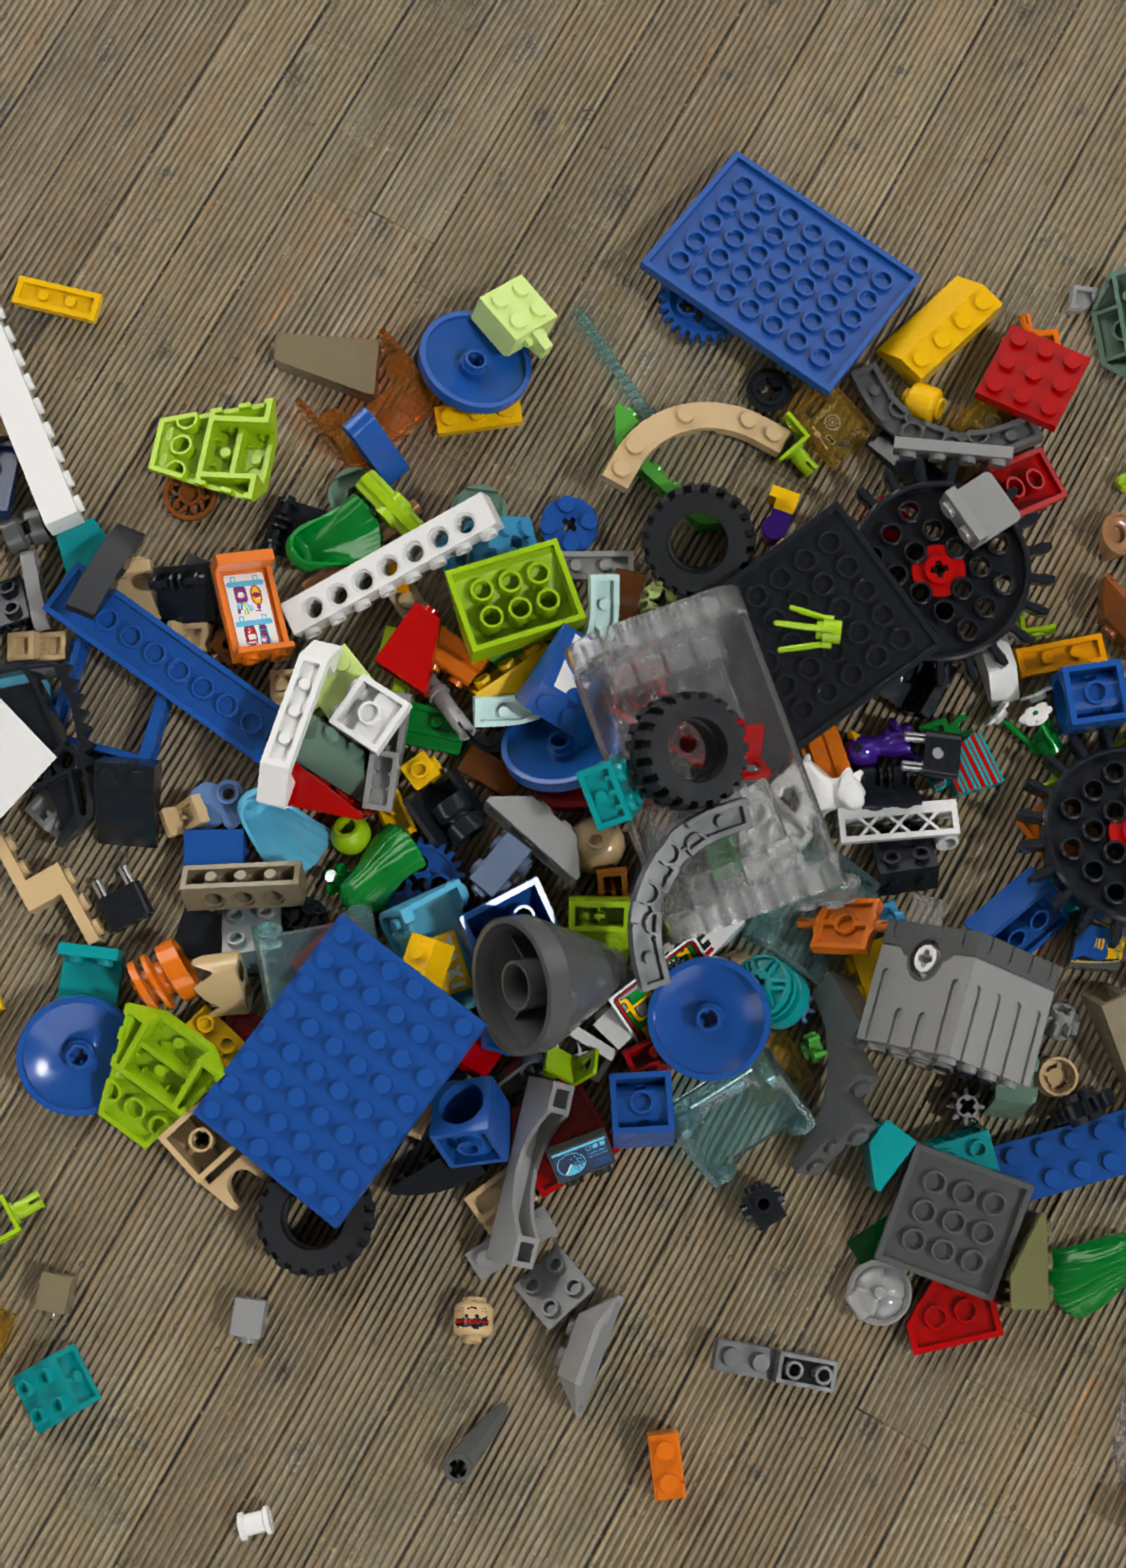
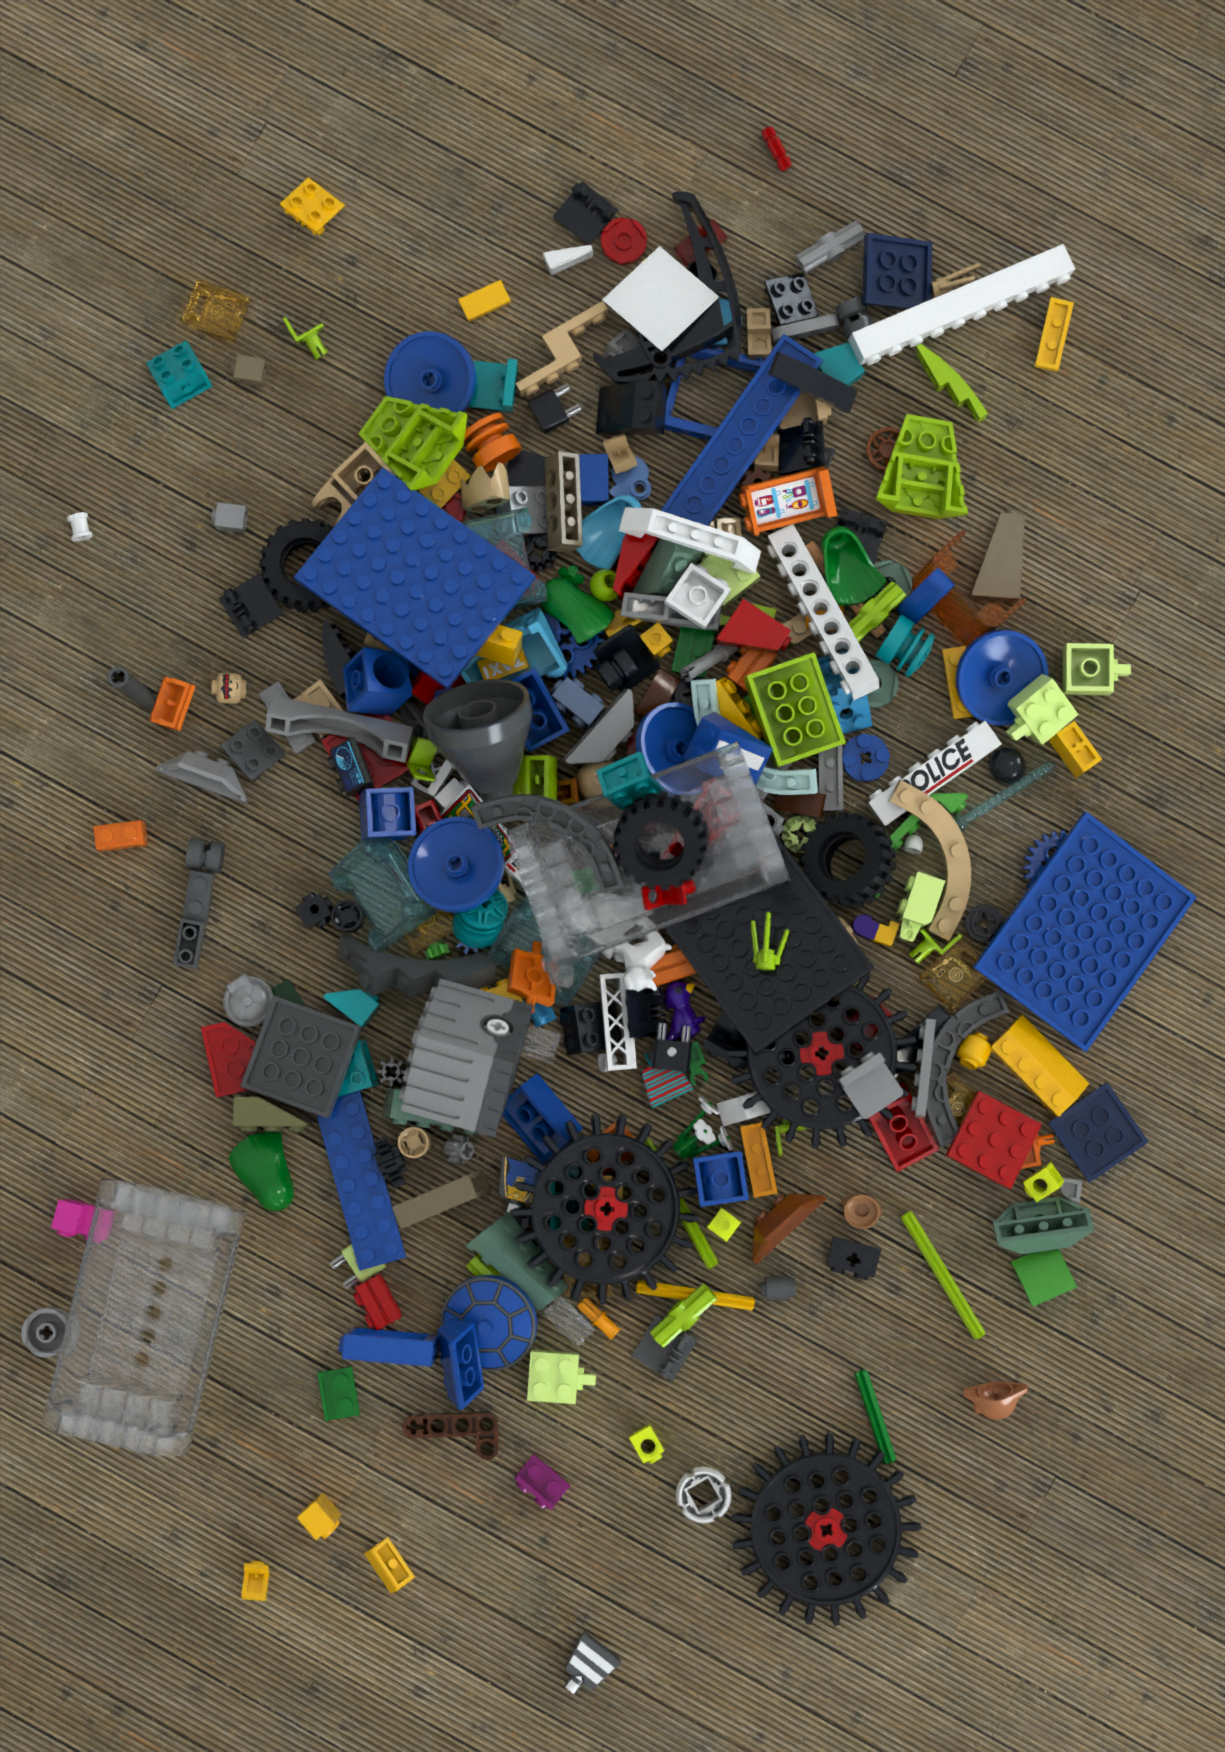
camera: 90 degrees right, 5 degrees up
(102, 426) = (945, 377): none -> lime slope
(365, 1291) = (250, 605): none -> black hinge
(435, 472) = (905, 646): none -> teal wheel
(465, 262) = (1090, 669): none -> yellowish green hinge
(492, 1395) = (172, 703): none -> orange hinge
(563, 281) = (1075, 749): none -> yellow hinge
(579, 361) = (1007, 765): none -> black hair
(586, 440) = (938, 770): none -> white brick
(674, 470) = (913, 844): none -> white hinge
(691, 1350) = (205, 855): none -> dark grey wheel
(750, 460) = (919, 905): none -> yellowish green hinge
(769, 1162) = (348, 916): none -> black wheel
(1016, 264) = (1098, 1132): none -> dark blue plate
(1067, 322) = (1049, 1175): none -> neon yellow brick

